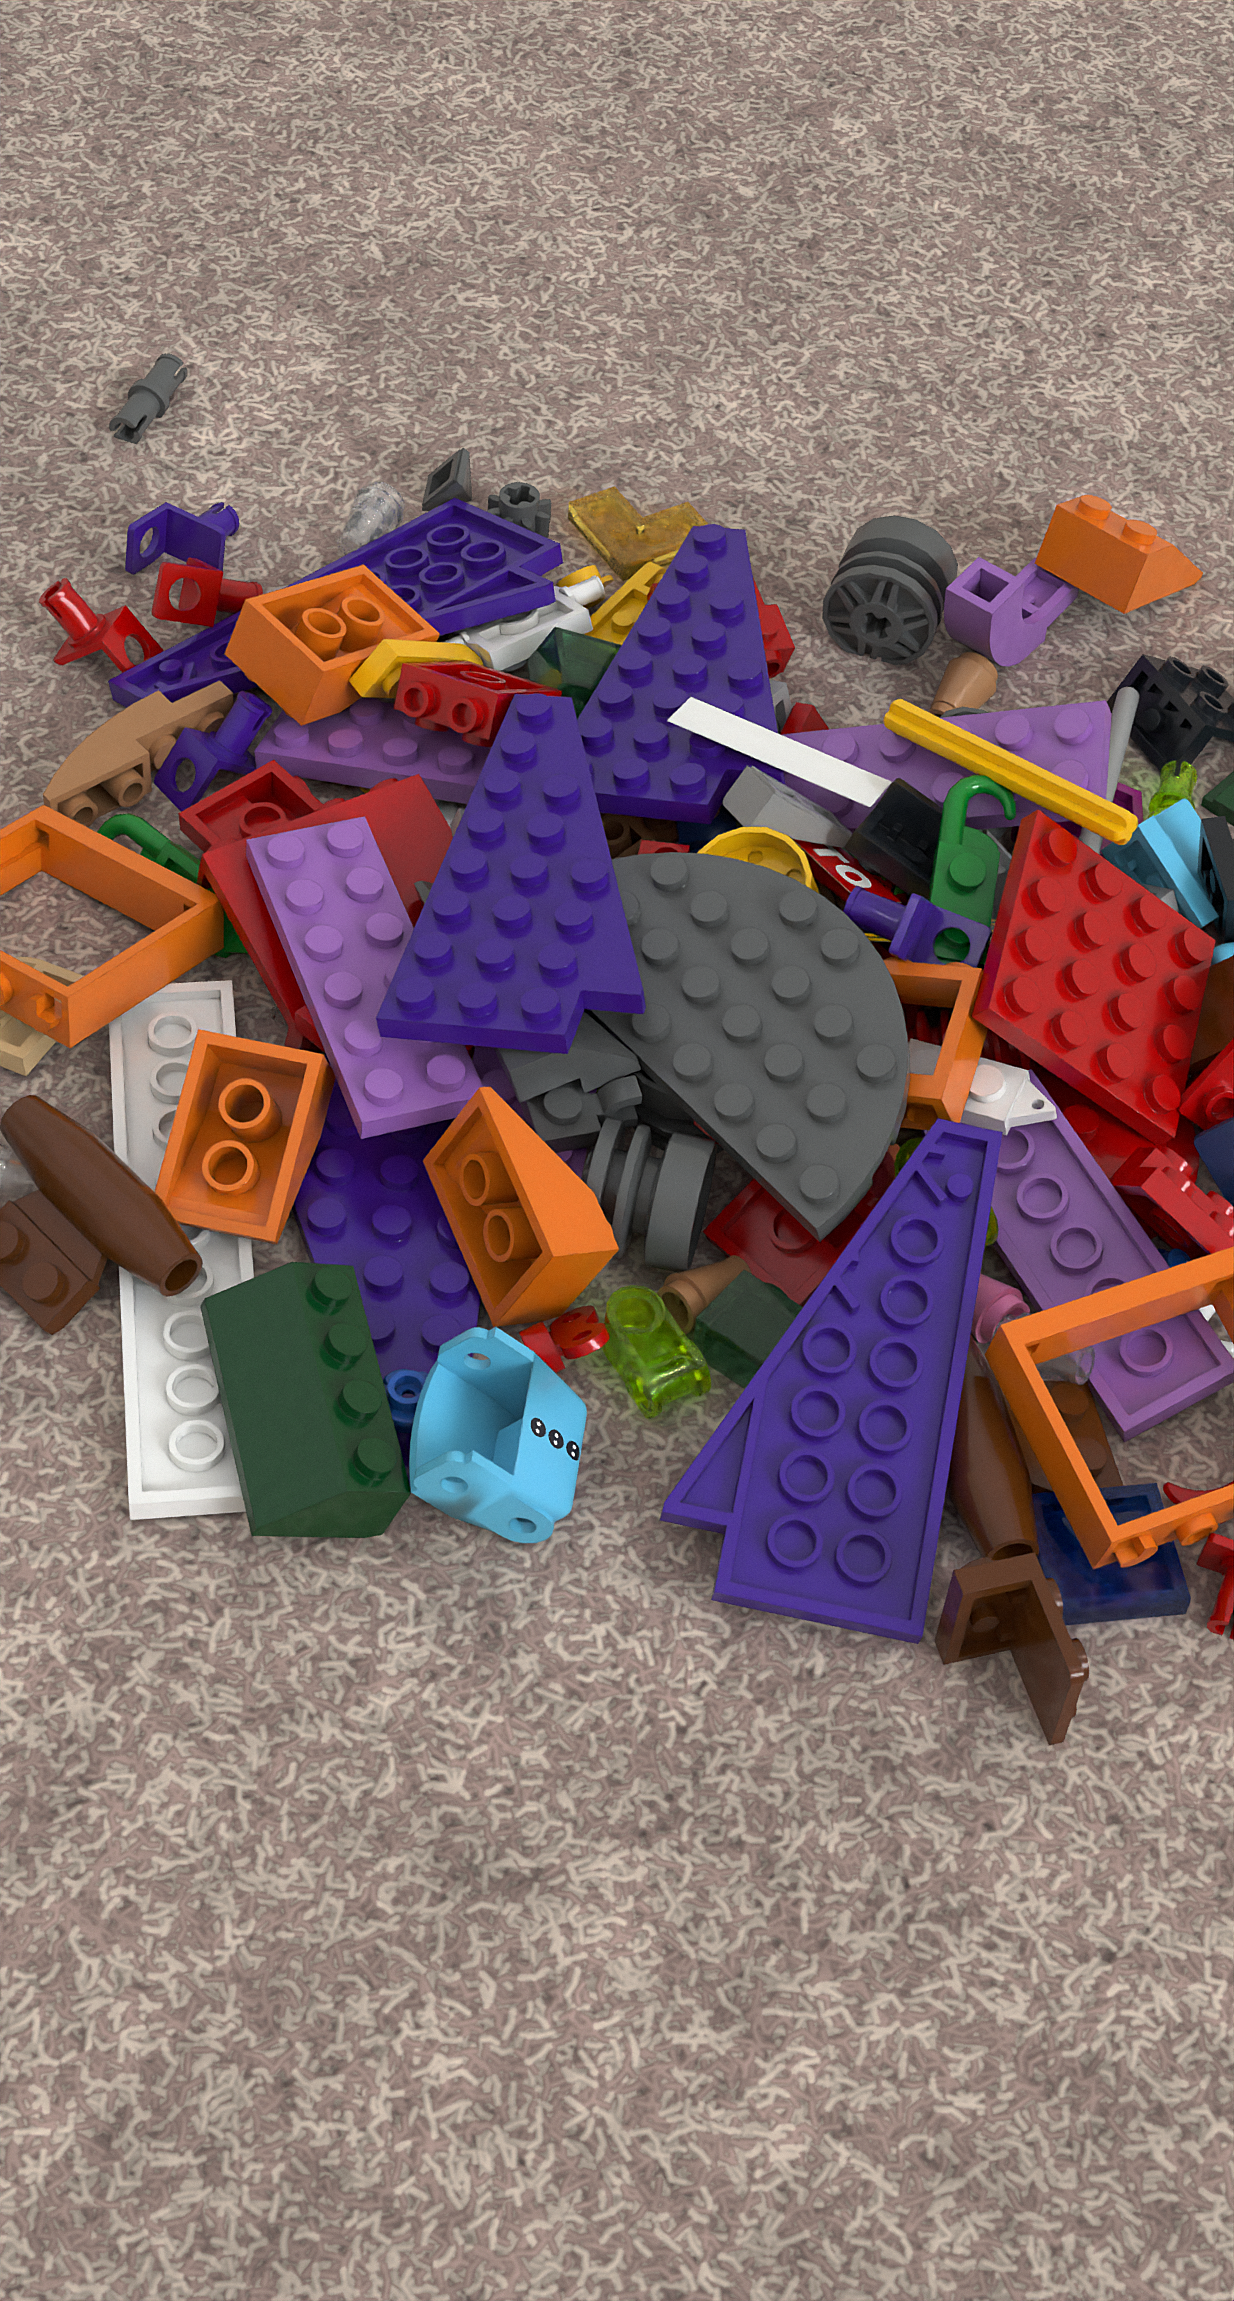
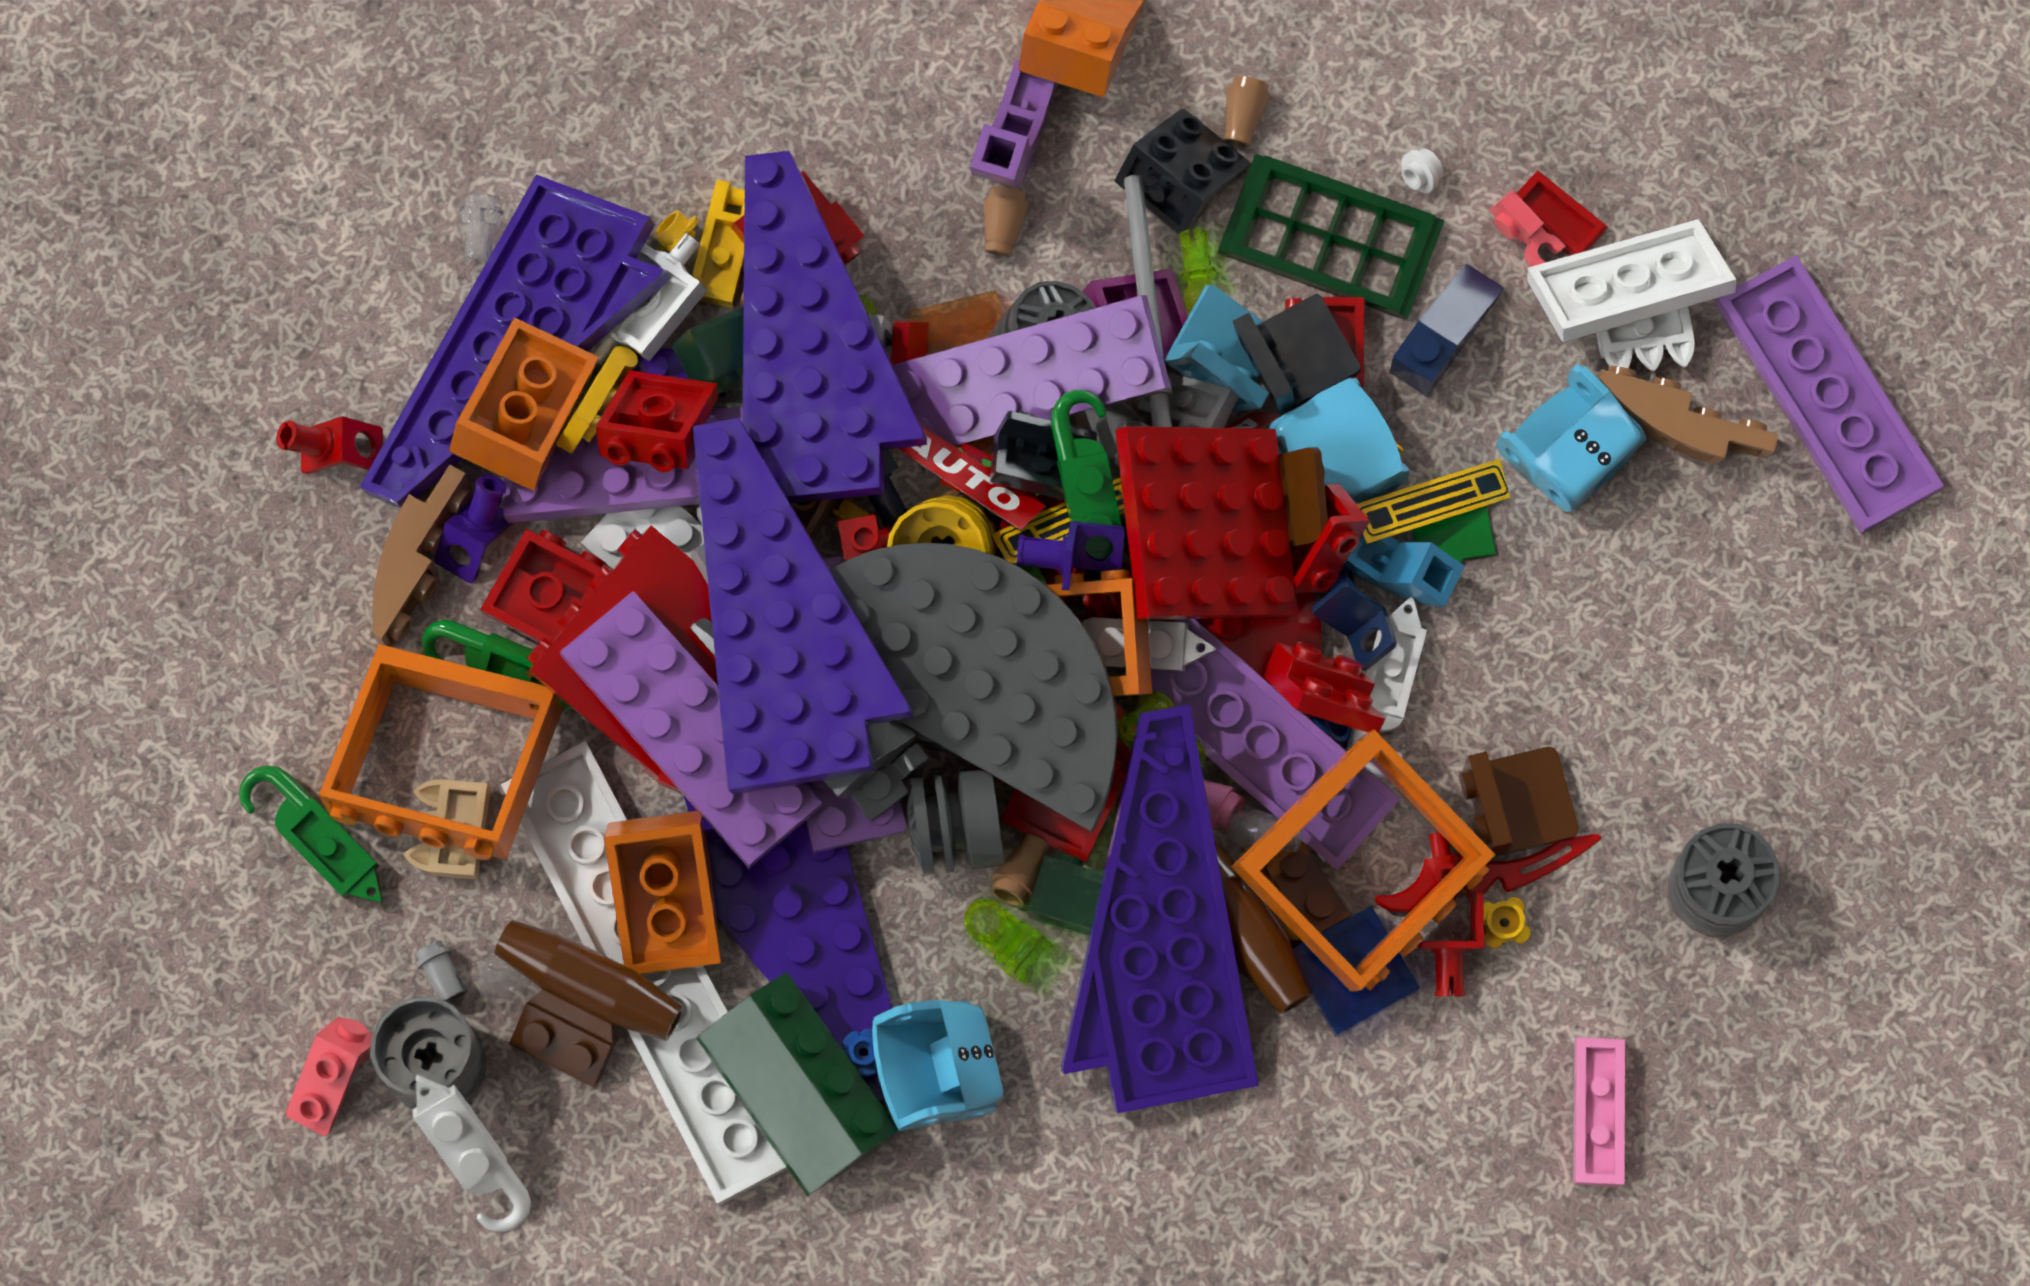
camera: 15 degrees left, 25 degrees up
(148, 398) = (243, 160): dark grey pin -> none
(181, 535) = (351, 307): dark purple bracket -> none
(201, 593) = (392, 370): red bracket -> none
(449, 481) = (521, 155): dark grey slope -> none
(517, 1213) = (878, 884): orange slope -> none
(522, 506) = (603, 178): dark grey gear -> none
(570, 1335) = (942, 954): red piece -> none
(627, 538) = (695, 159): clear yellow plate -> none
(766, 802) = (937, 467): light grey slope -> none
(780, 751) = (912, 414): white sticker -> none
(890, 590) = (917, 148): dark grey wheel -> none
(1011, 772) = (1090, 383): yellow axle -> none
(1016, 1609) = (1326, 1053): reddish brown bracket -> none

